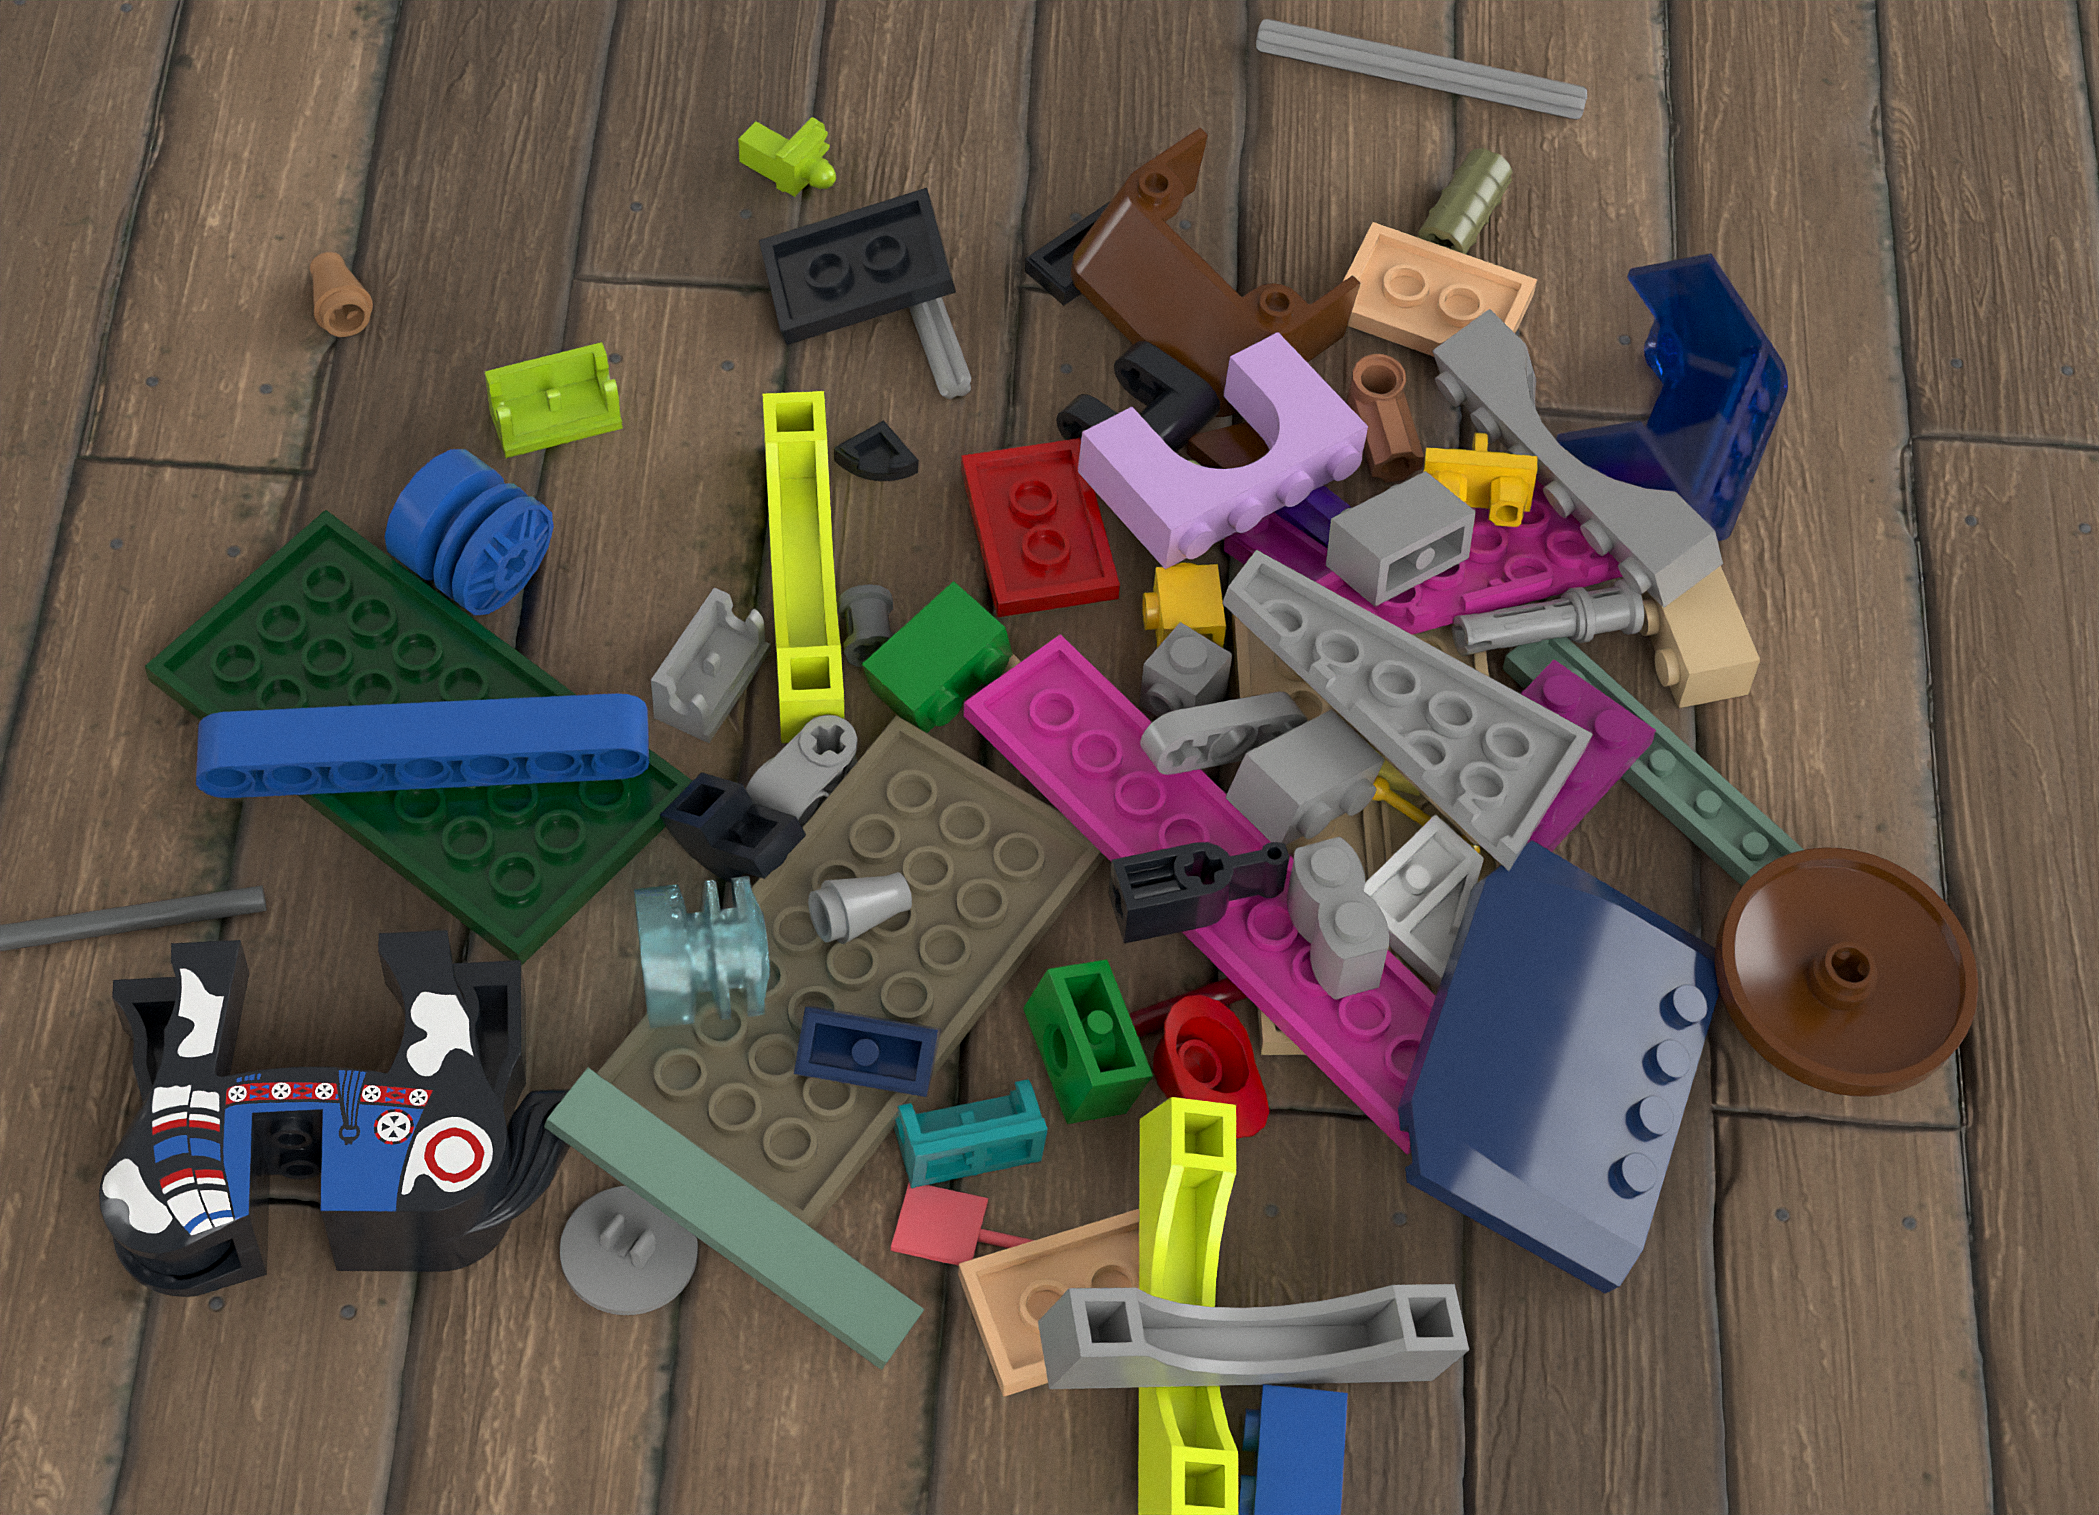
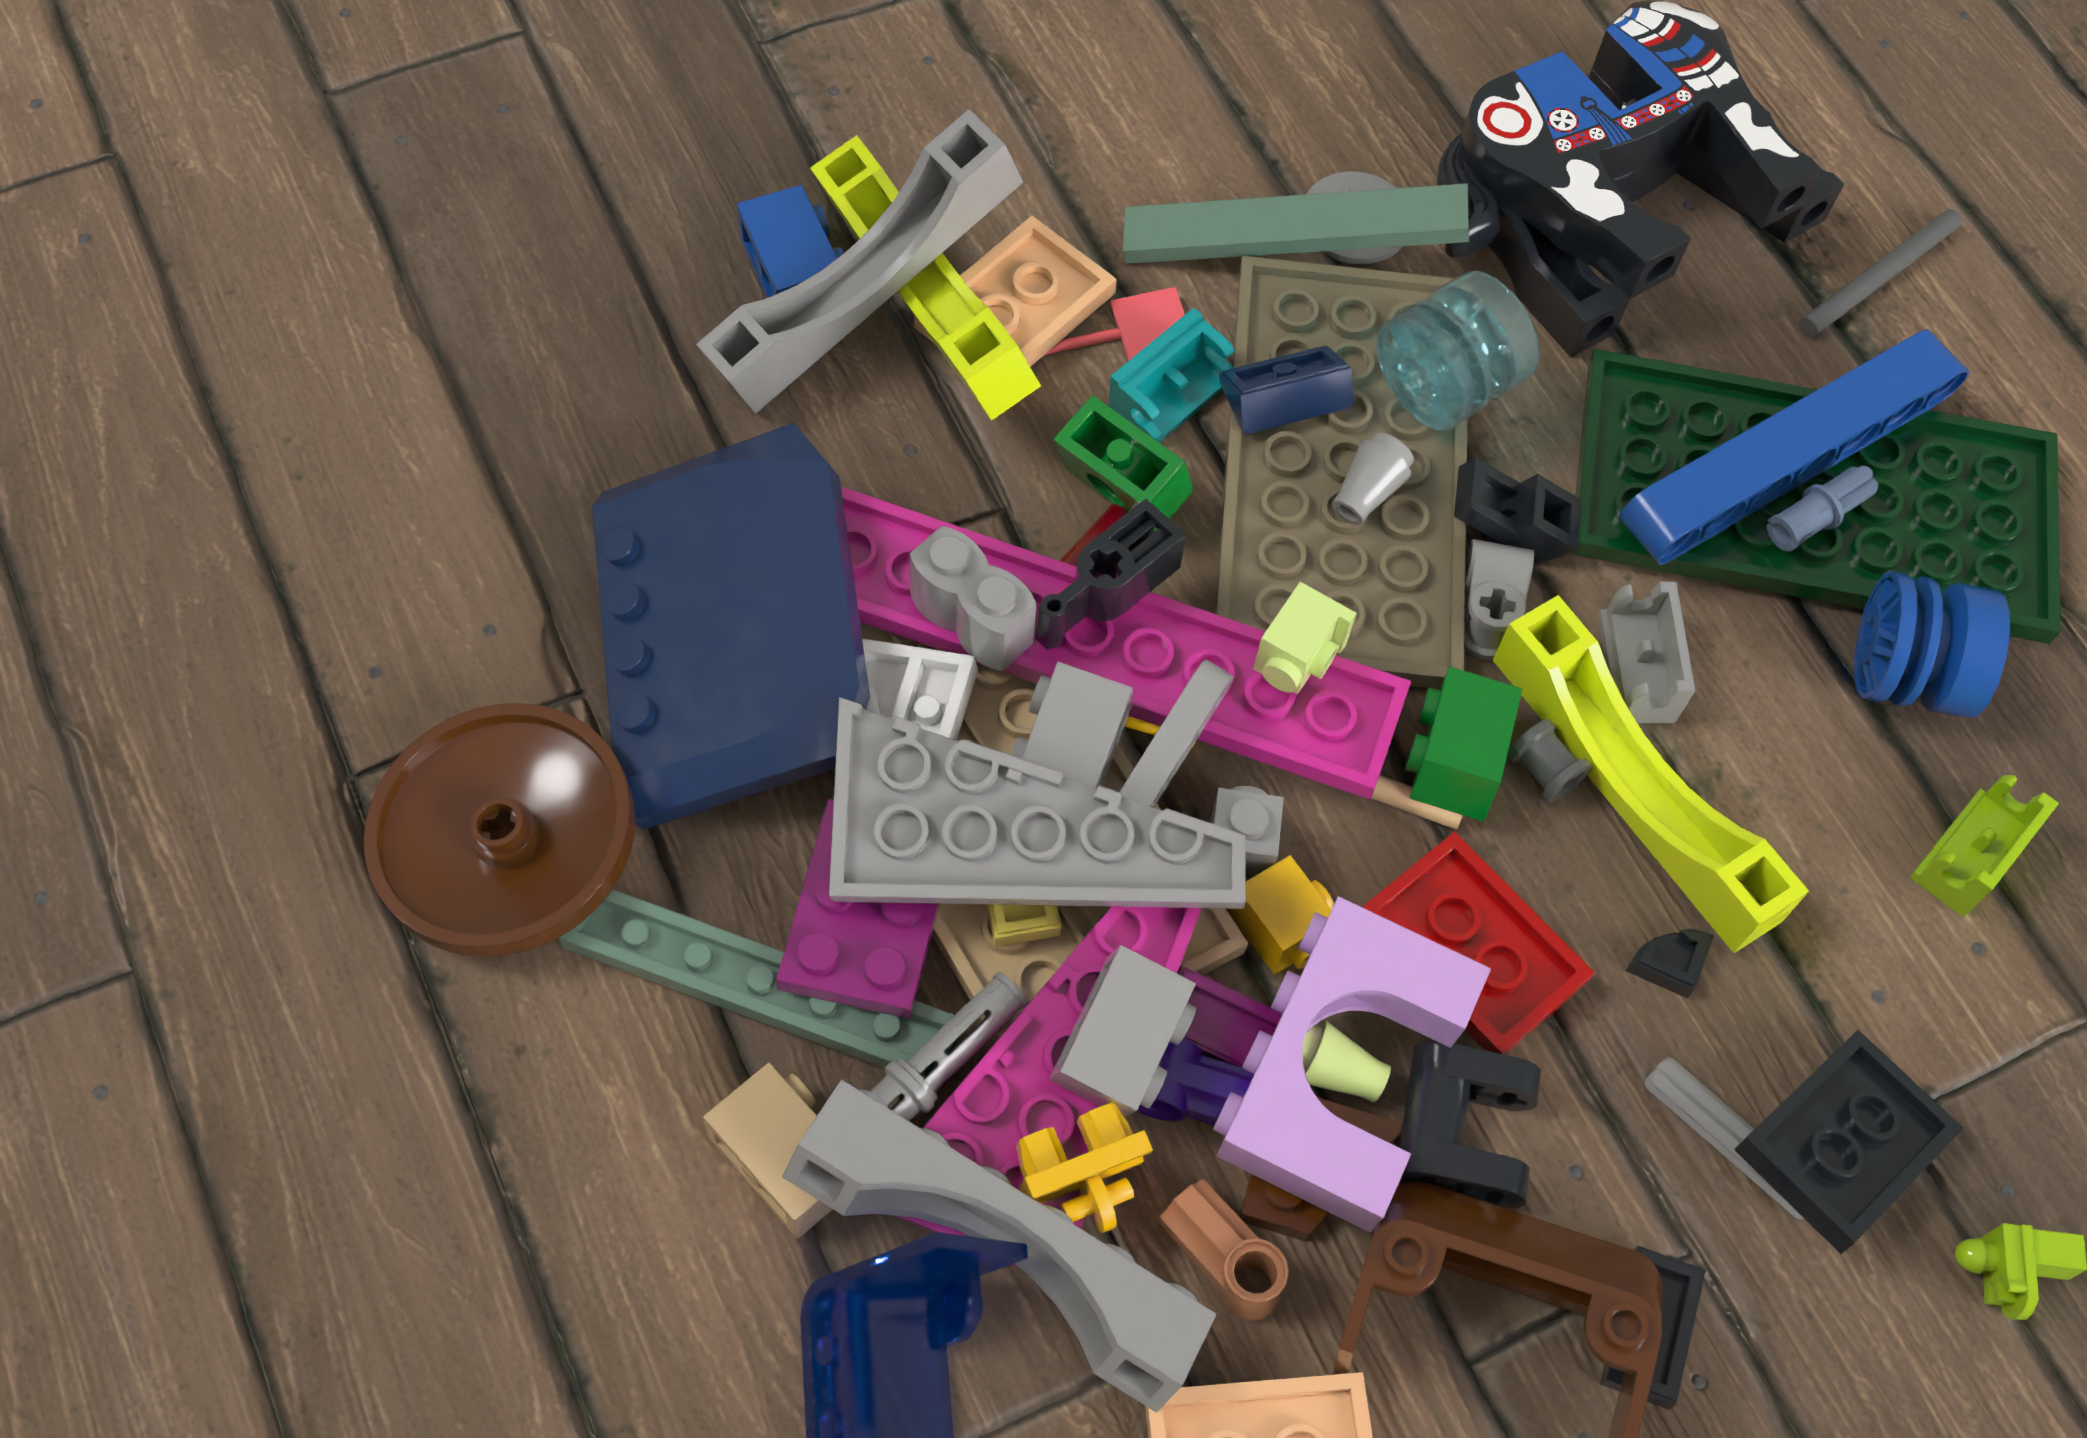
camera: 150 degrees right, 5 degrees up
(447, 684) = (1821, 507): none -> sand blue axle
(1053, 751) = (1303, 639): none -> yellowish green brick
(1211, 1060) = (1008, 483): red piece -> none

